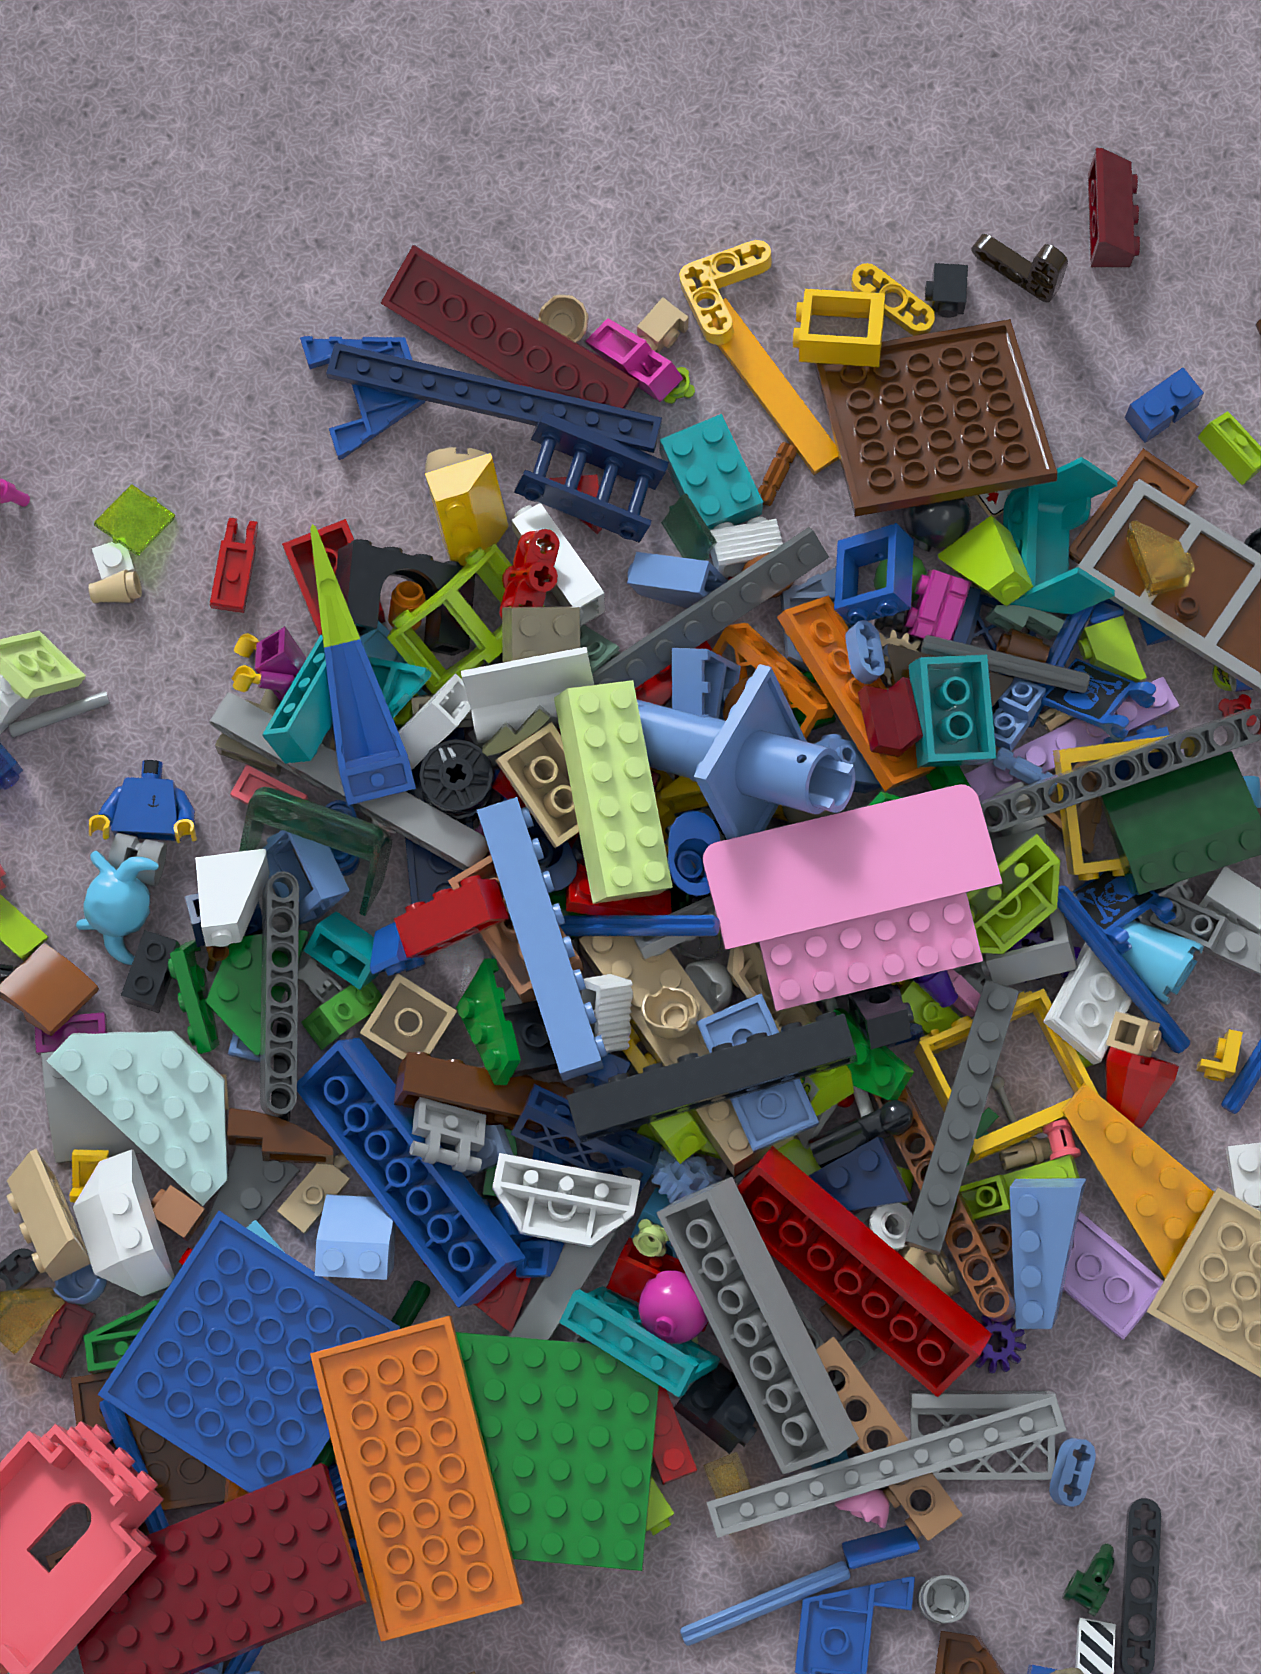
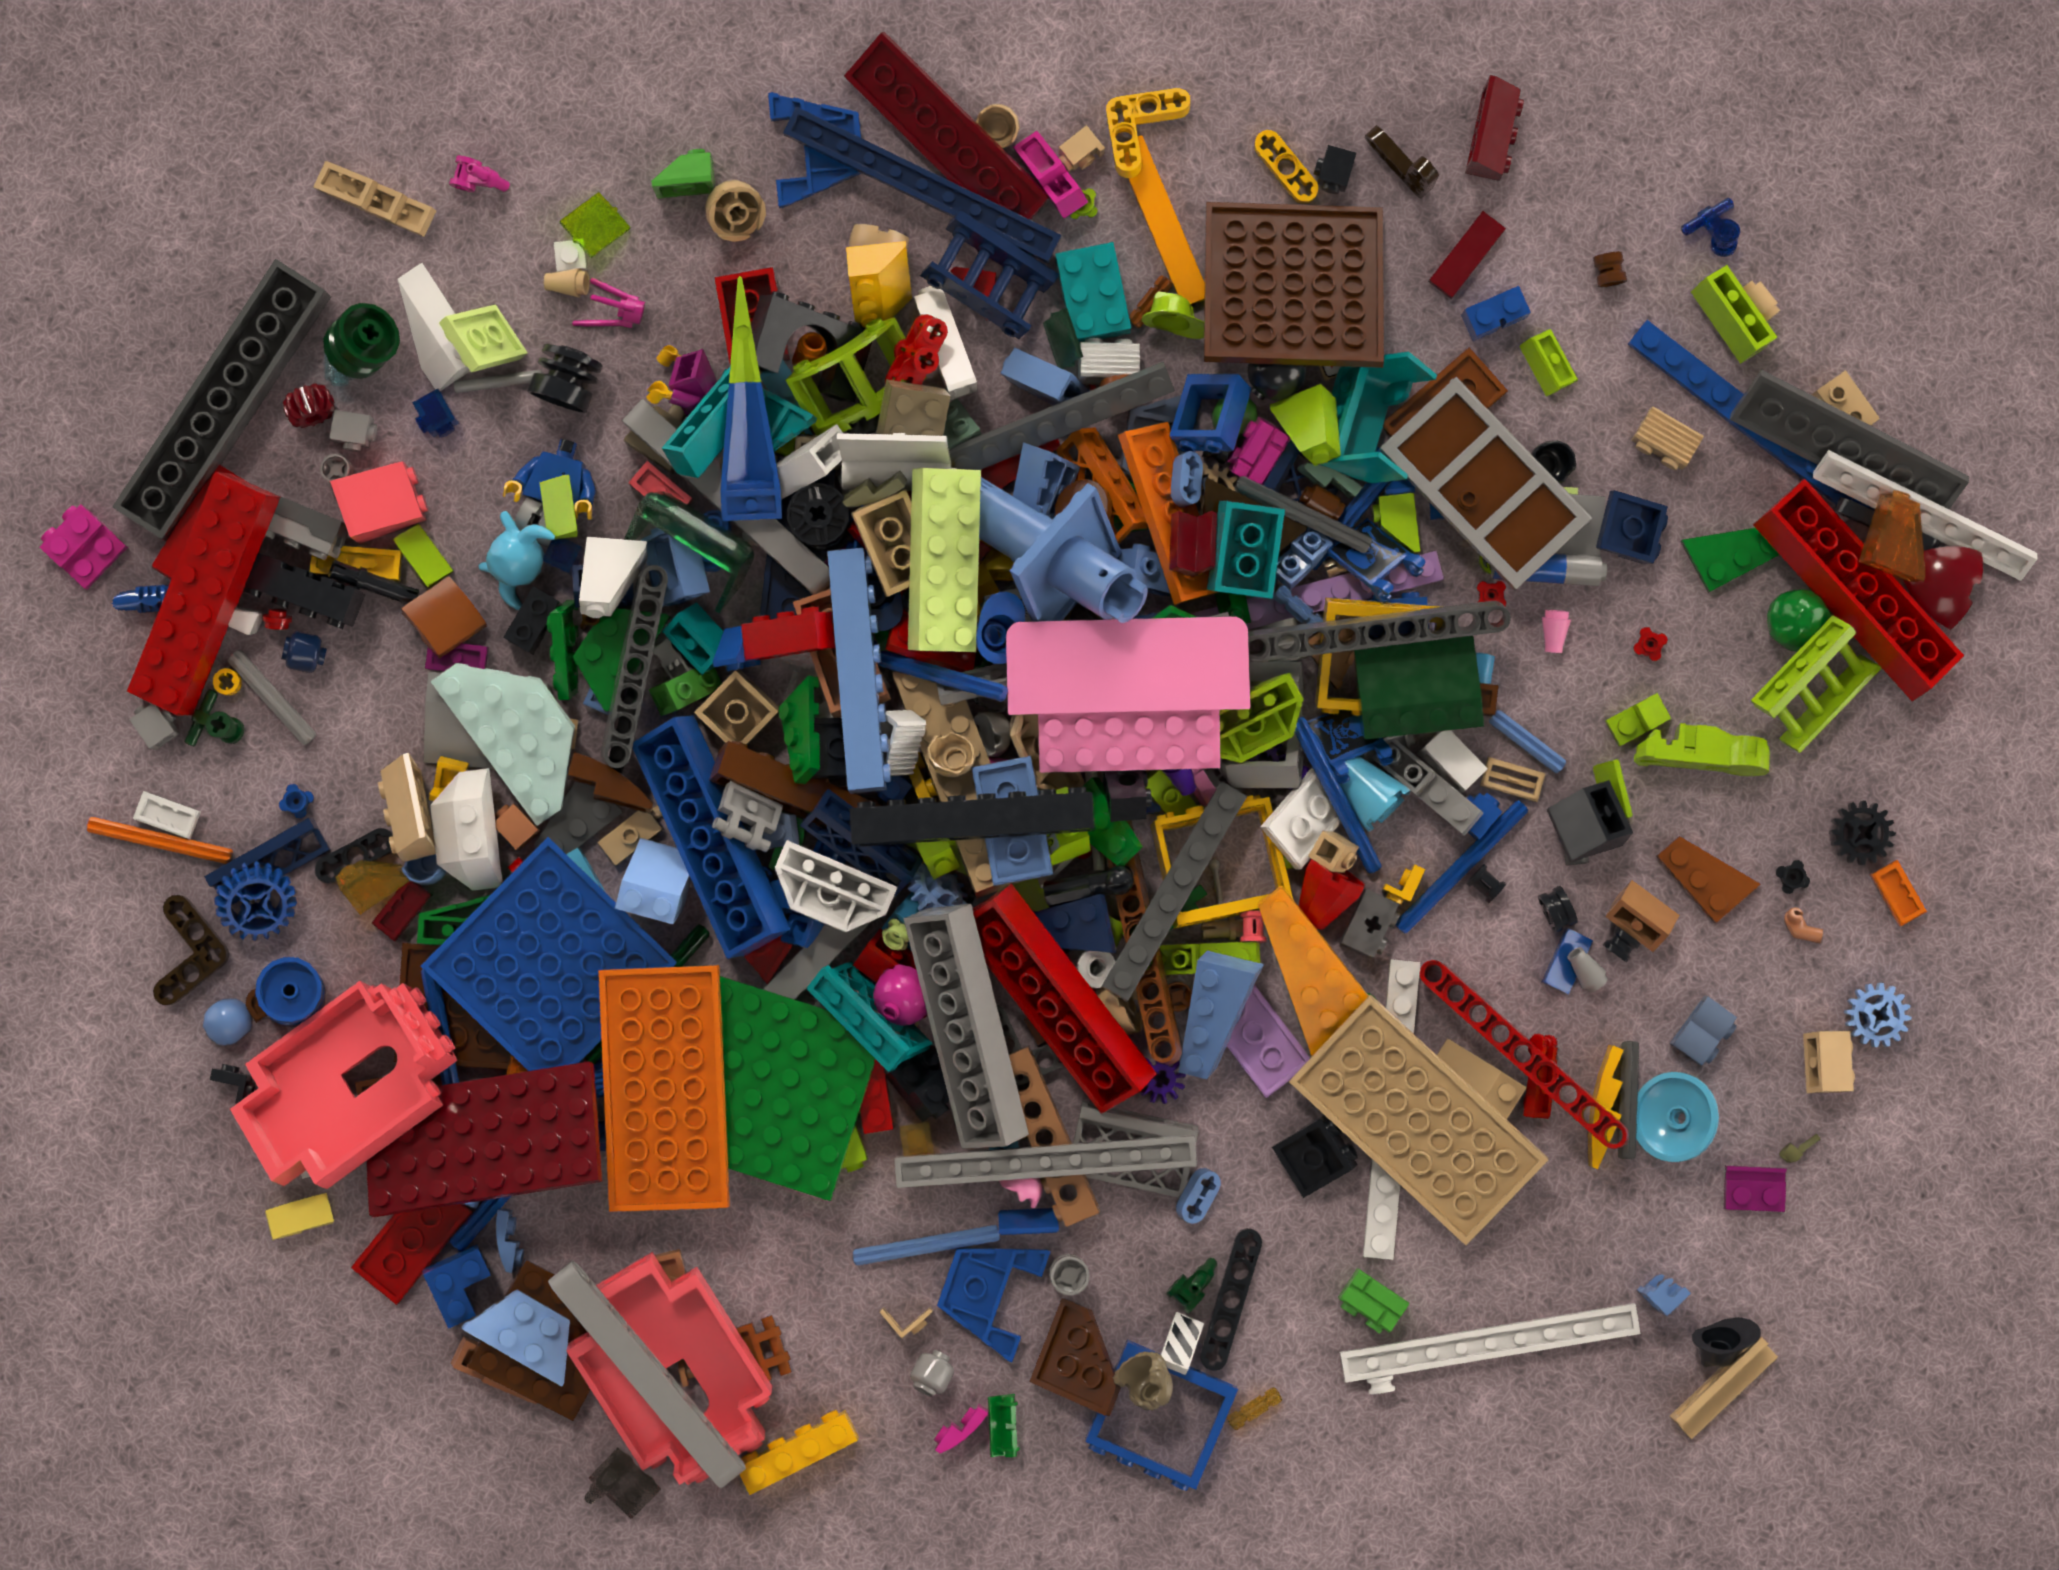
camera: 10 degrees right, 10 degrees up
(134, 691) = (565, 378): none -> black wheel
(156, 833) = (559, 507): none -> lime slope
(170, 889) = (563, 554): none -> clear blue brick
(192, 602) = (630, 308): none -> dark pink plant
(227, 446) = (686, 176): none -> bright green slope
(234, 569) = (671, 286): red hinge -> none
(290, 468) = (735, 210): none -> tan cylinder
(807, 481) = (1174, 315): none -> lime piece
(840, 349) = (1227, 205): yellow window -> none
(1115, 351) = (1467, 254): none -> dark red tile
(1159, 559) = (1453, 455): clear yellow slope -> none
(1181, 1126) = (1356, 933): none -> flat silver brick
(1198, 1393) = (1315, 1155): none -> black plate

